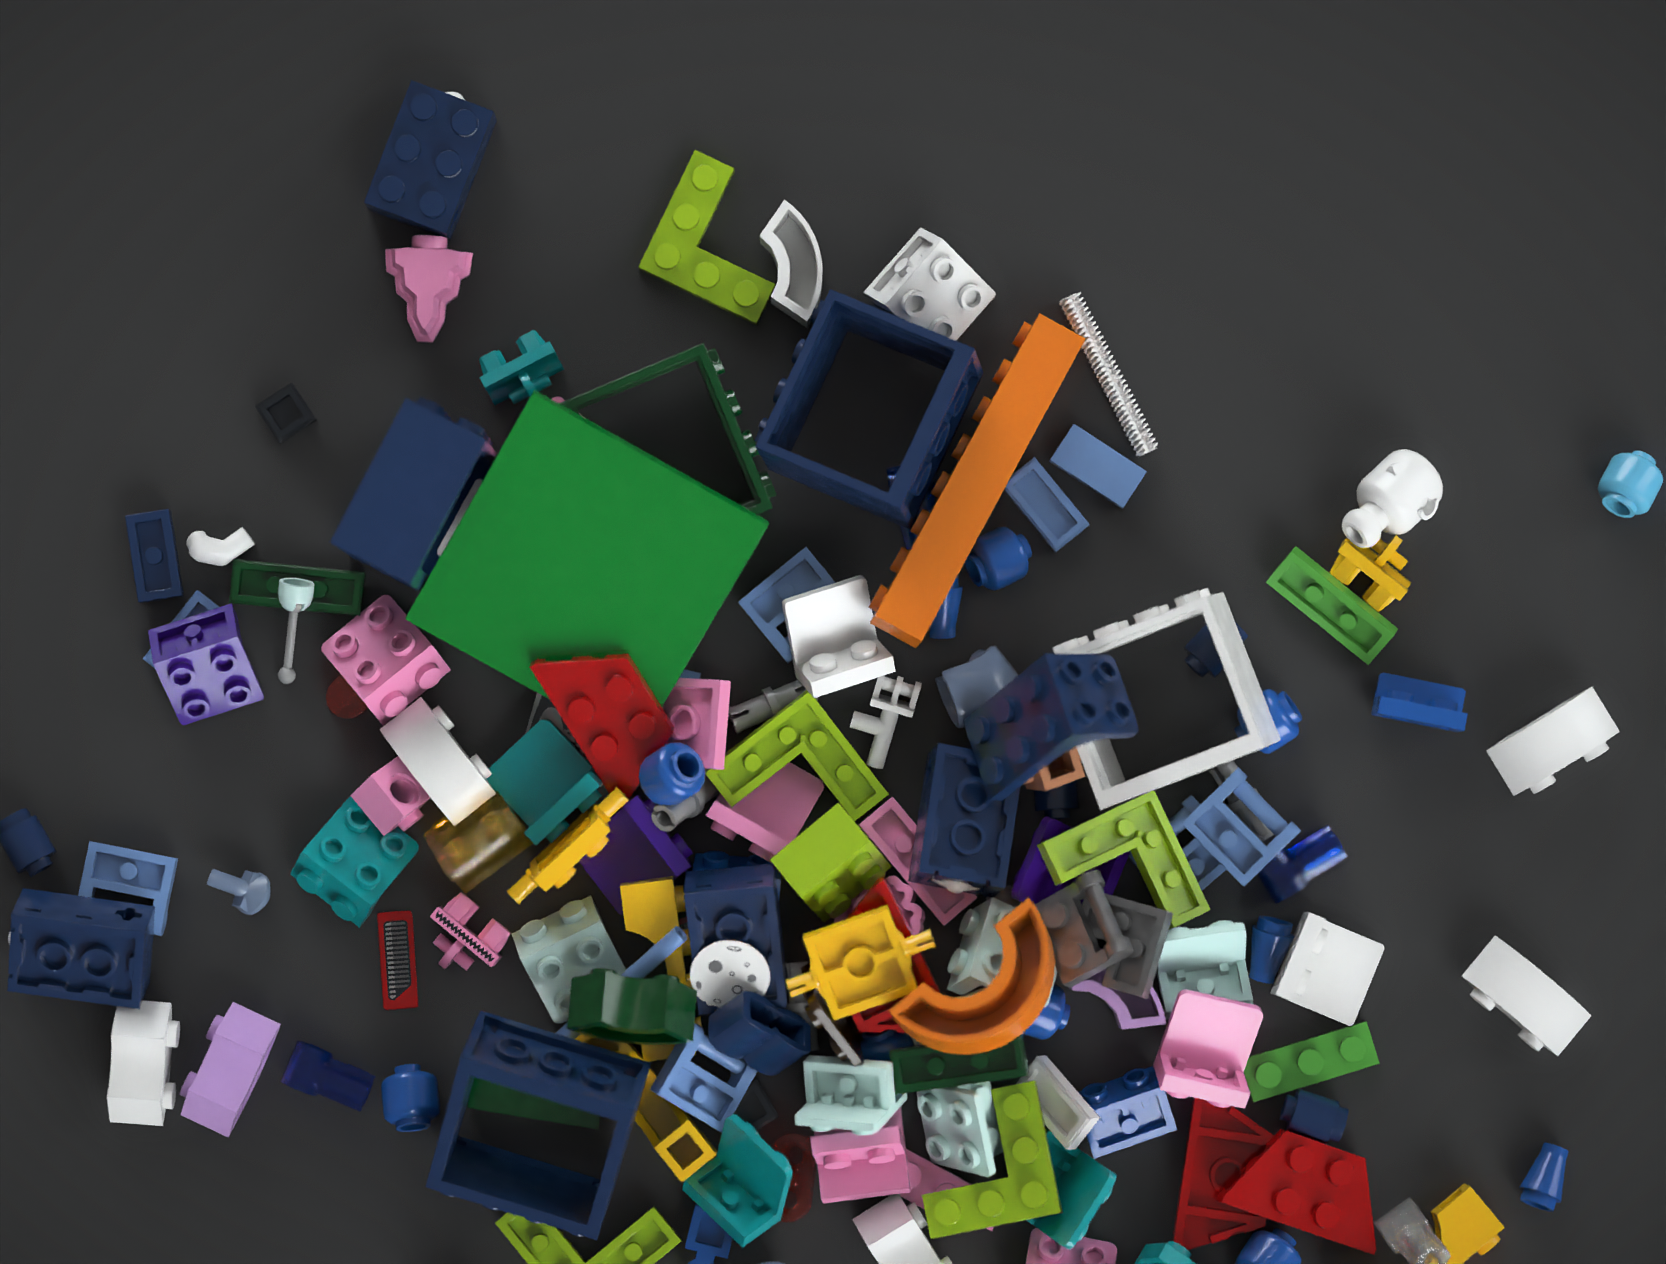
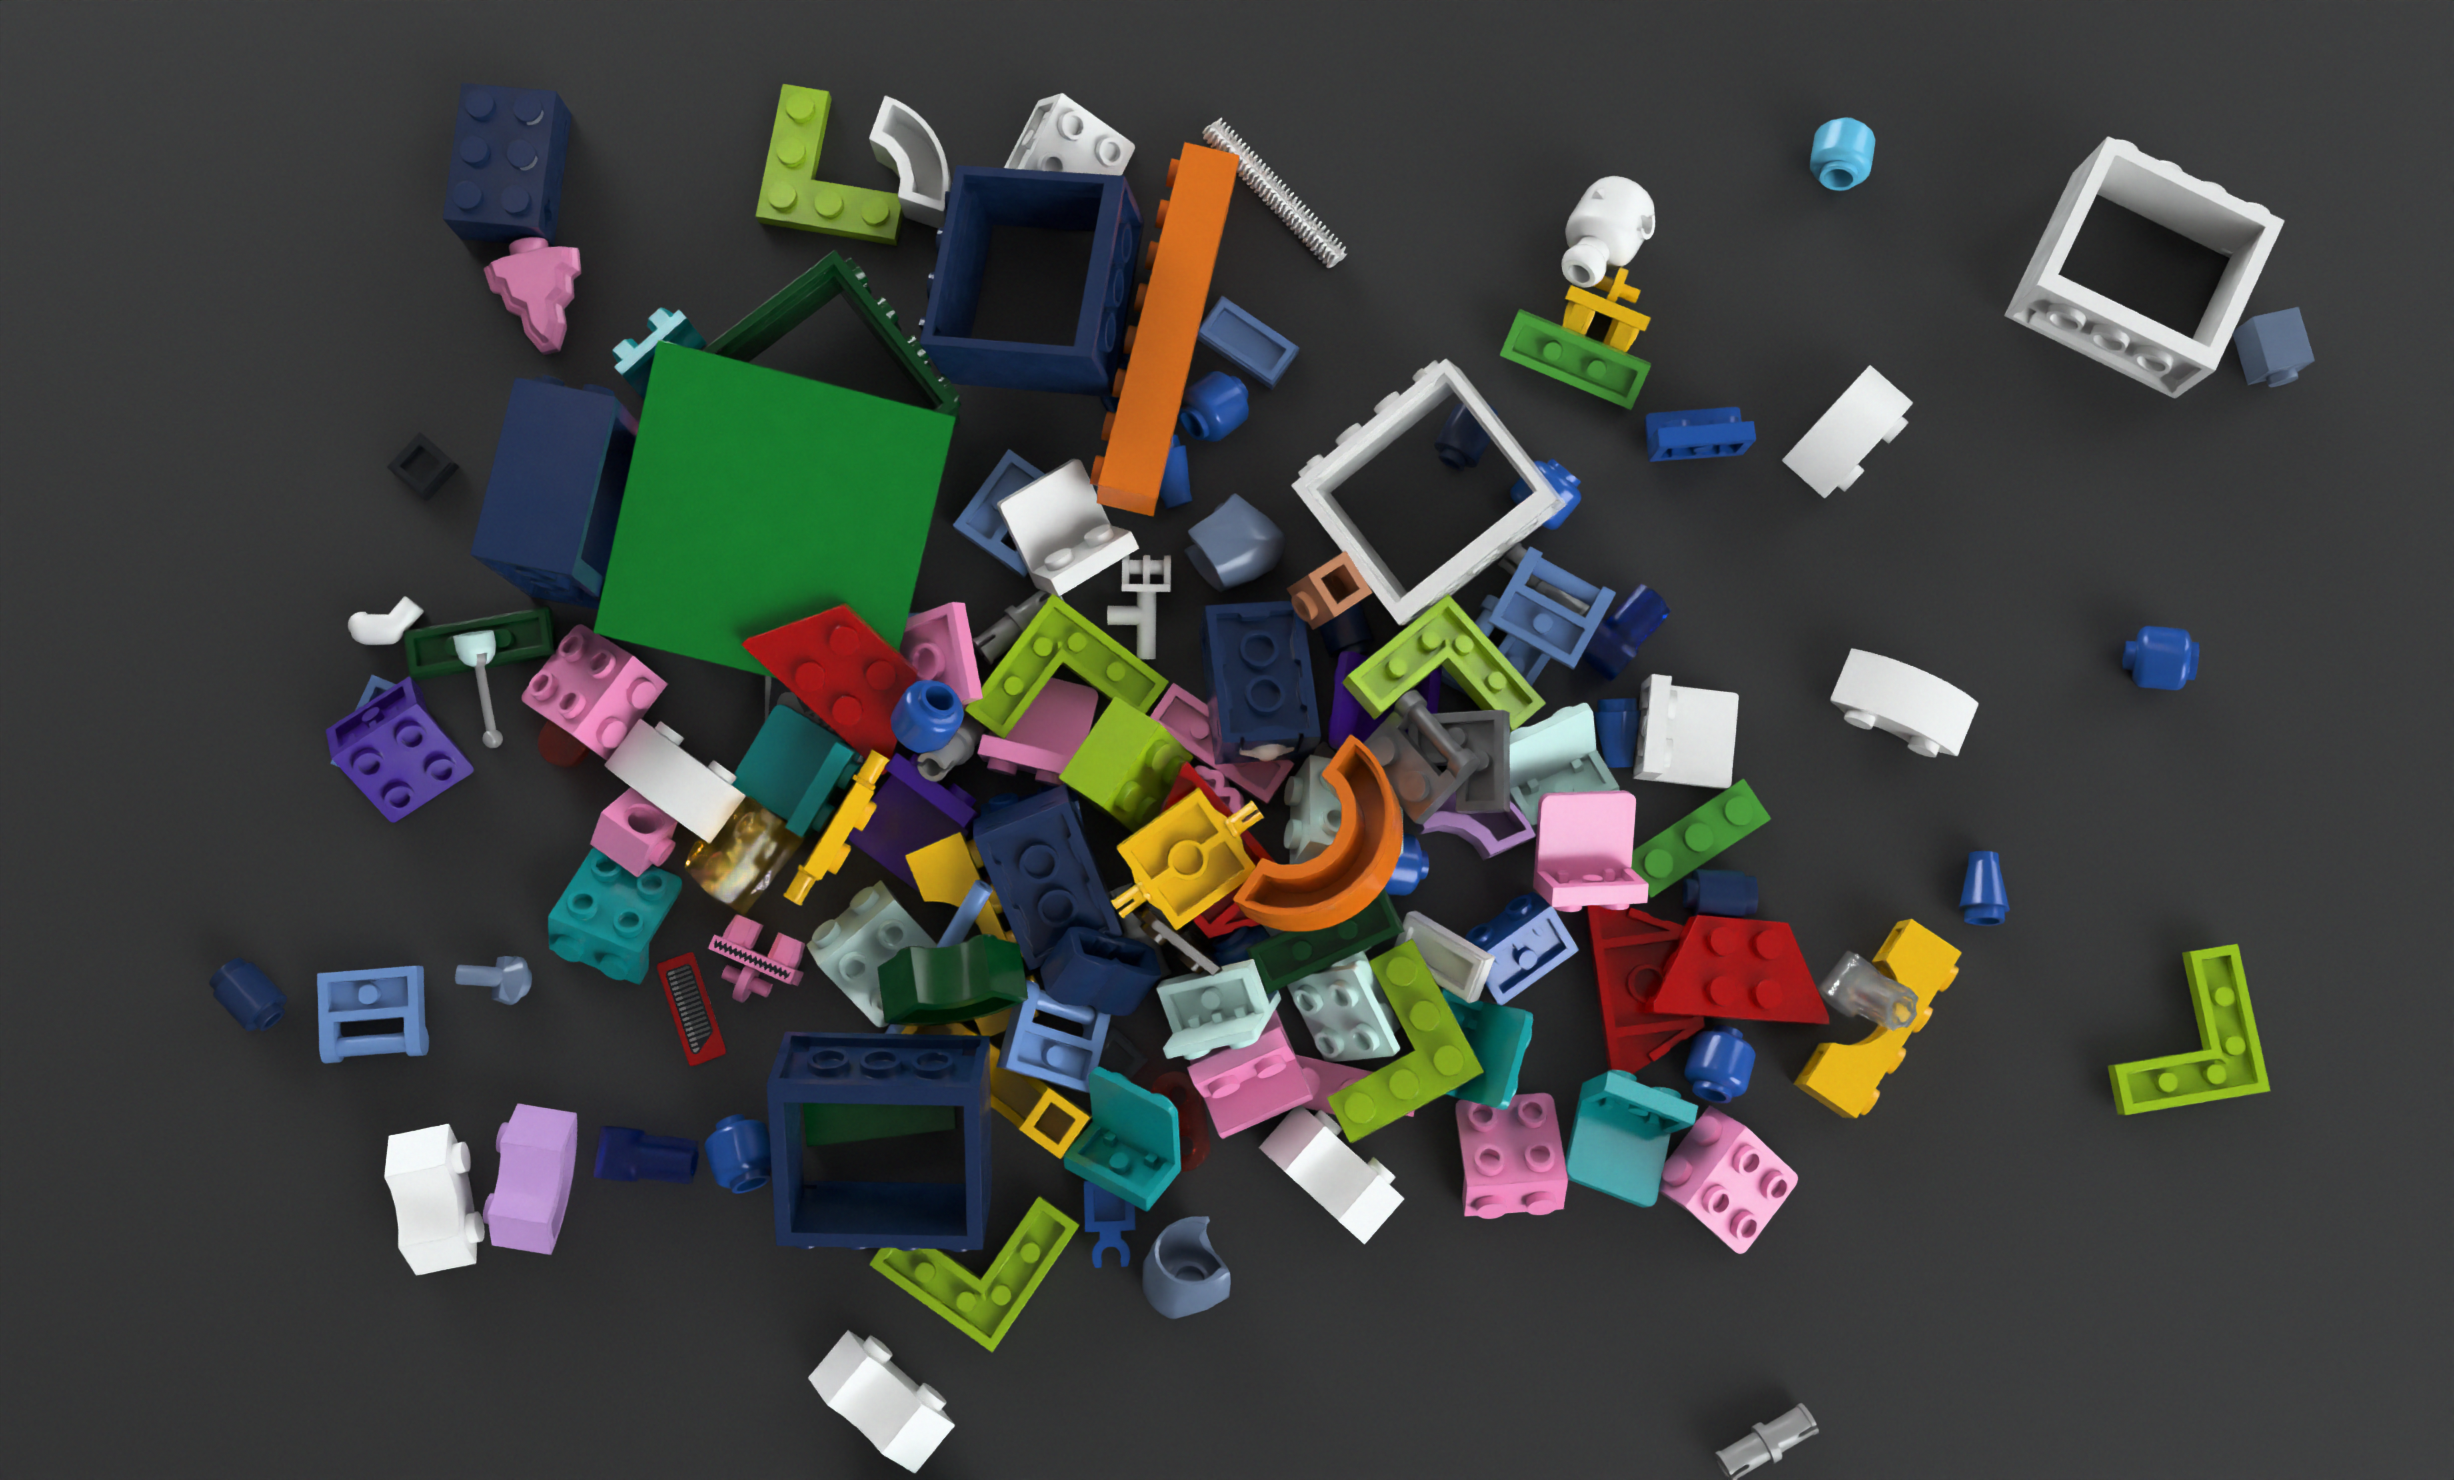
camera: 15 degrees left, 5 degrees down
(80, 948) = (330, 1092): dark blue piece -> none
(154, 556) = (316, 651): dark blue plate -> none
(727, 970) = (1044, 911): white sticker -> none
(1045, 713) = (1307, 532): dark blue bracket -> none
(1098, 466) = (1290, 288): medium blue tile -> none

